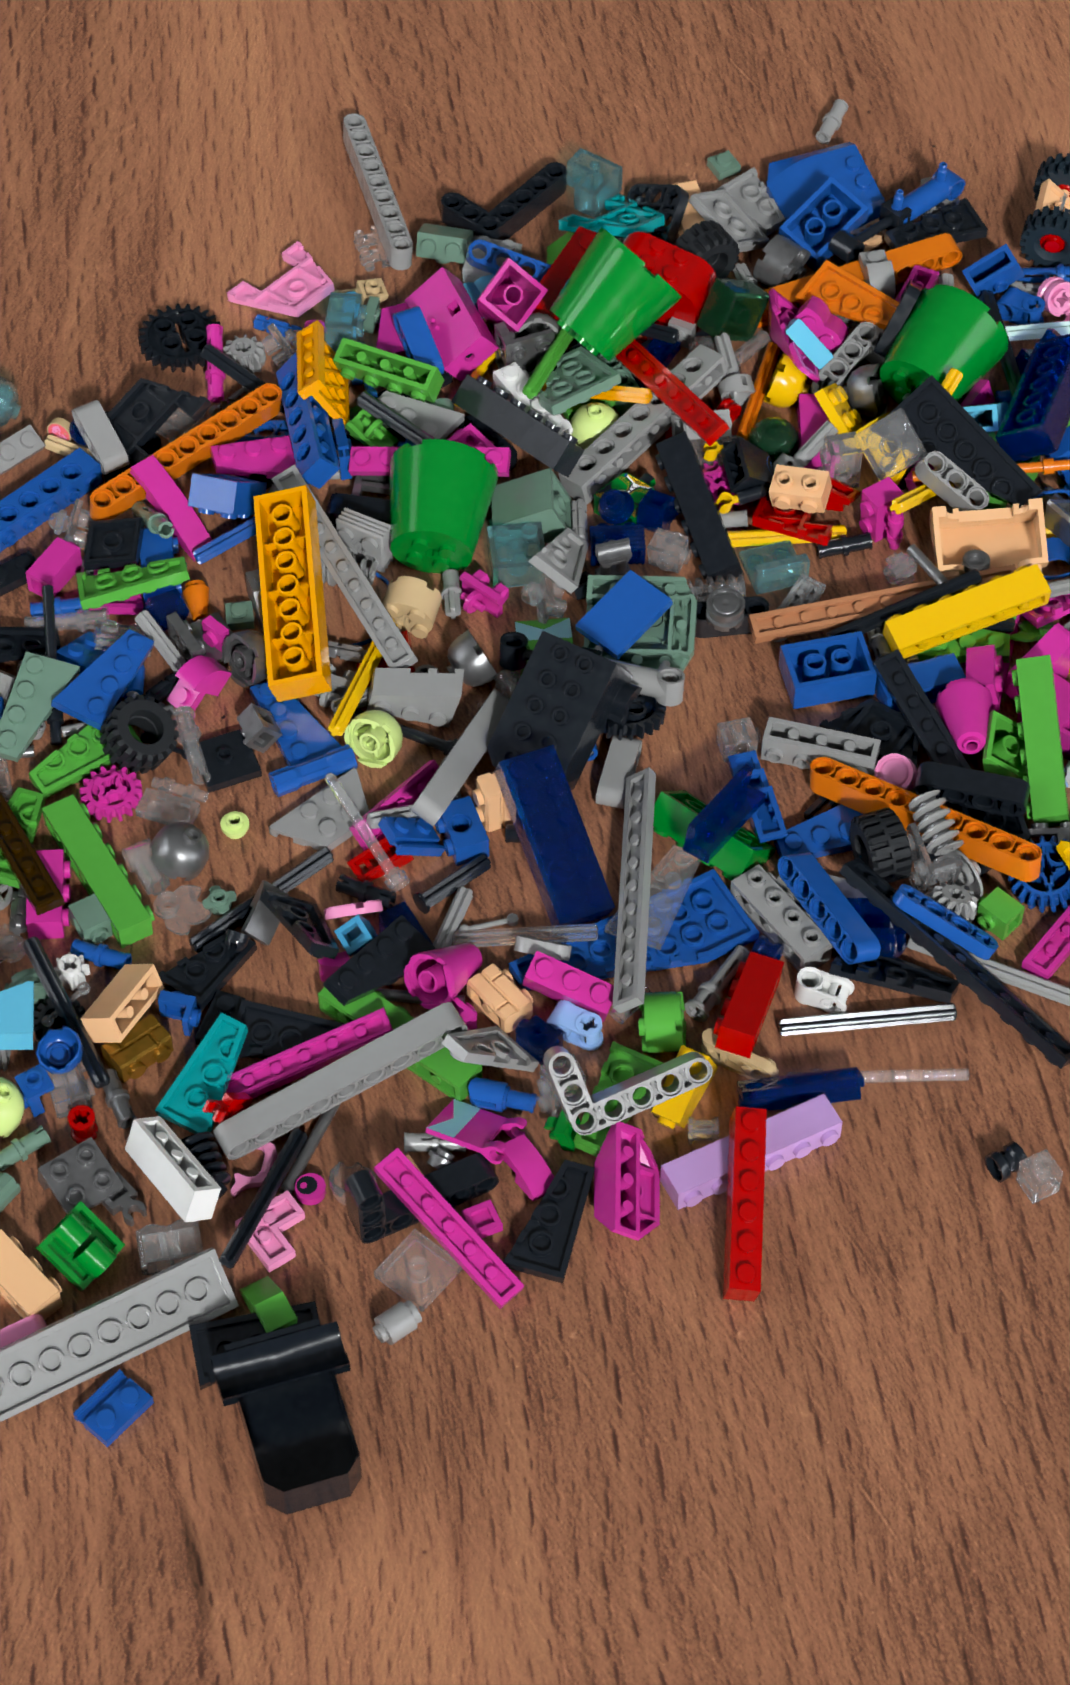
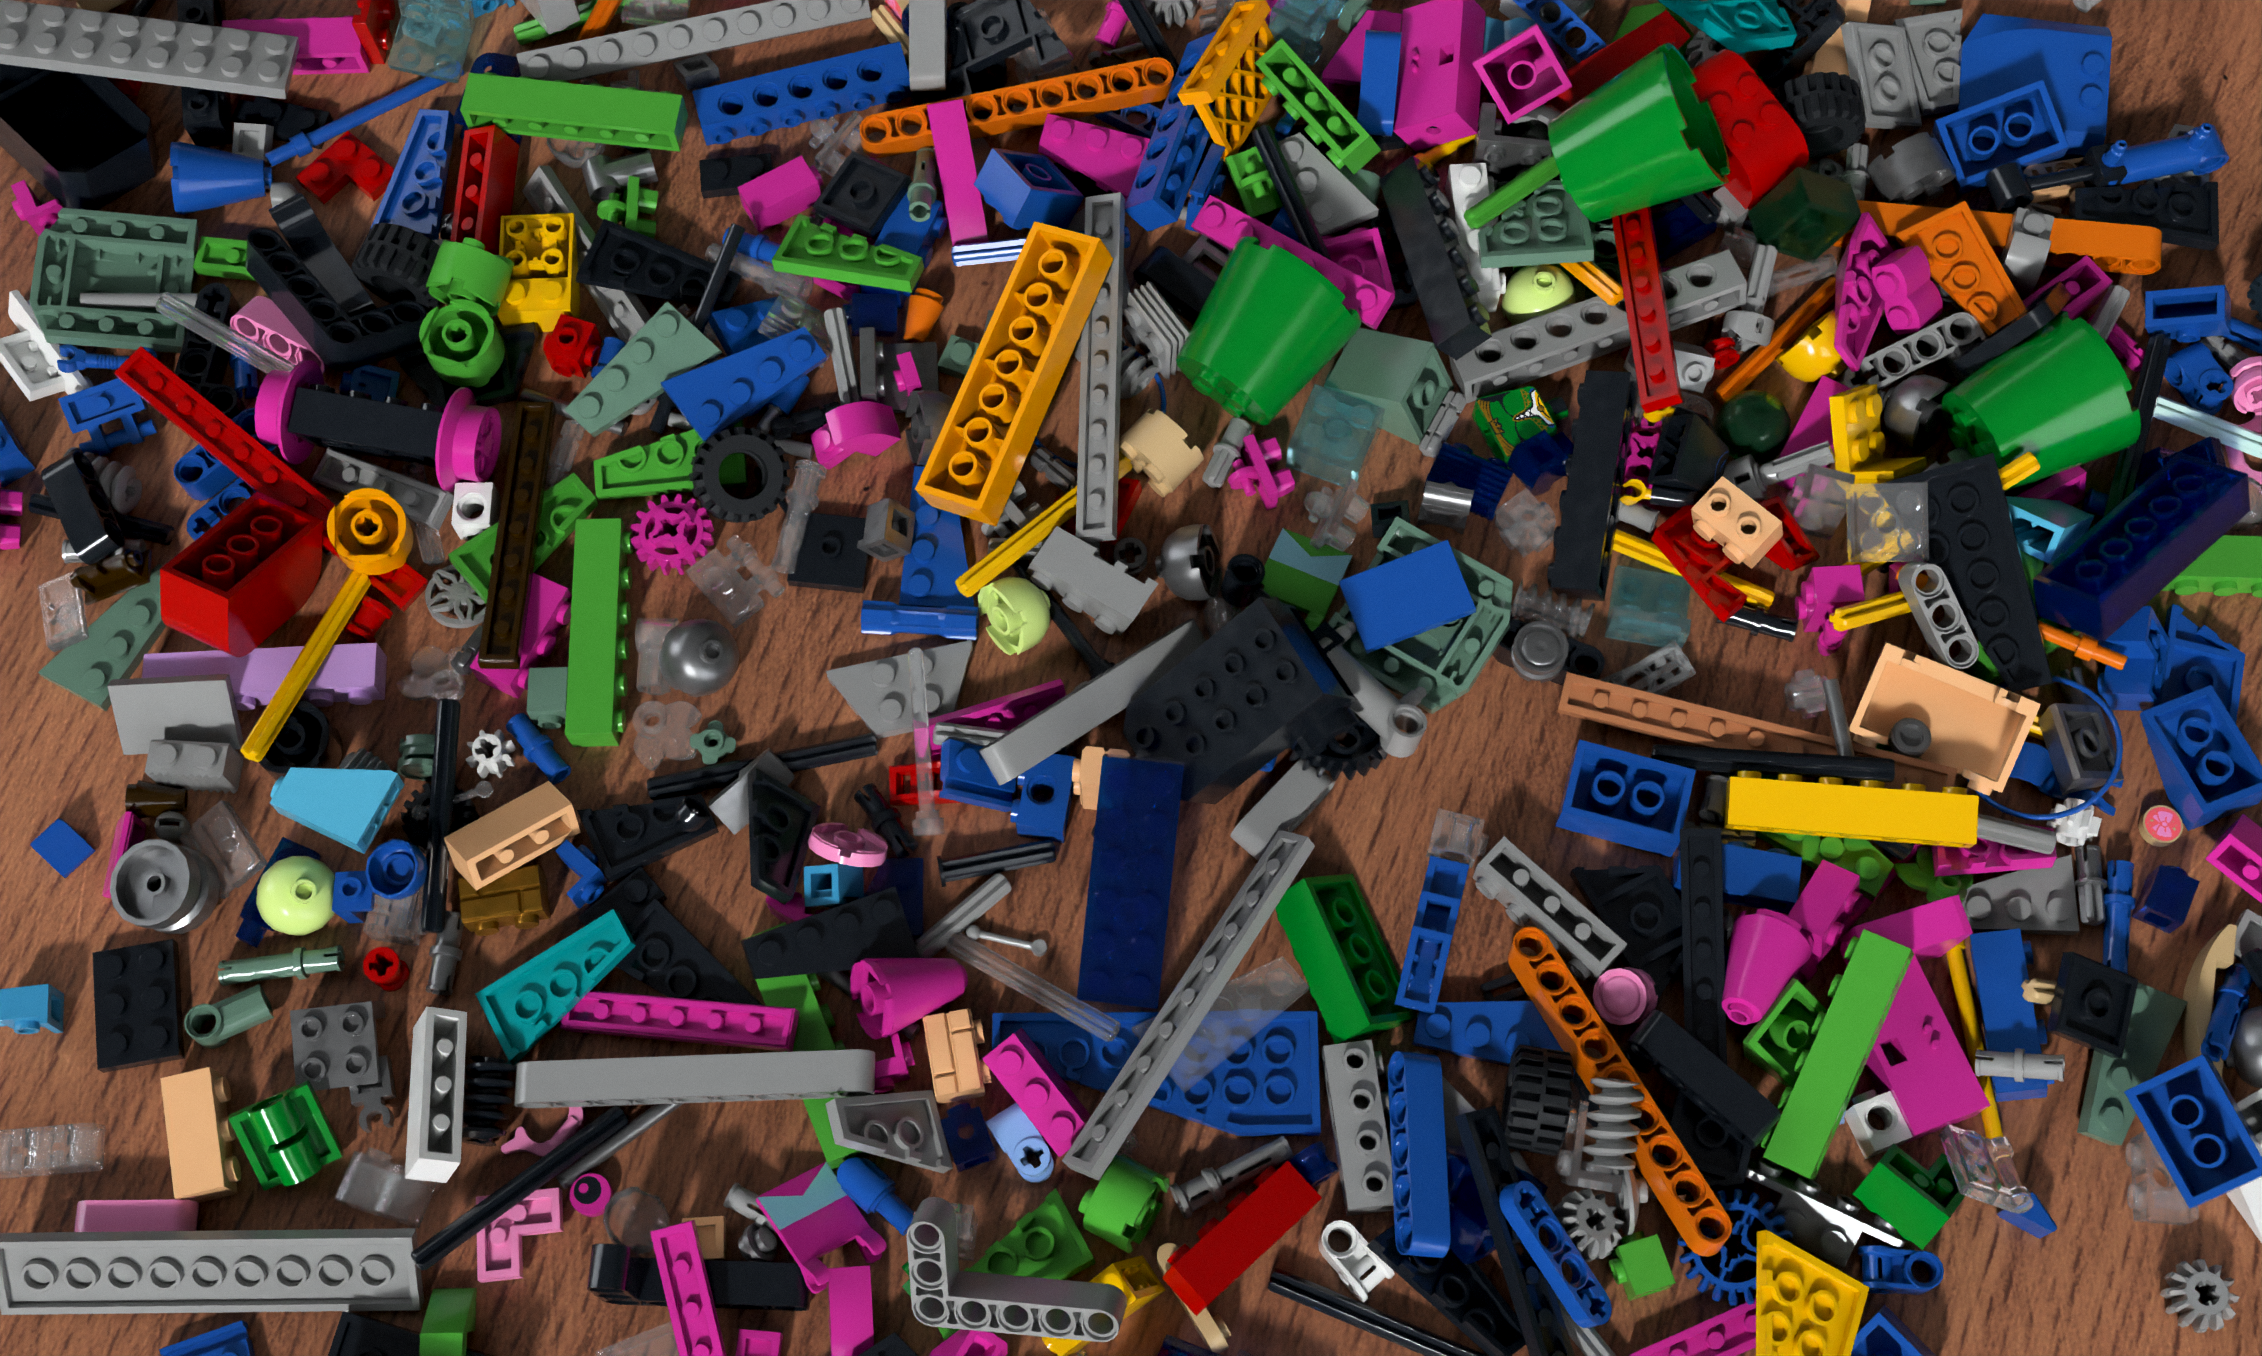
camera: 30 degrees right, 15 degrees up
(230, 1105) = (552, 1043): red plate -> none
(237, 830) = (793, 656): yellowish green plate -> none
(553, 949) = (1036, 1021): light grey beam -> none
(563, 559) = (1382, 475): light grey wing -> none
(616, 506) = (1490, 432): clear blue cone -> none
(723, 816) = (1355, 961): clear blue fence -> none
(808, 343) = (1869, 313): medium azure slope -> none

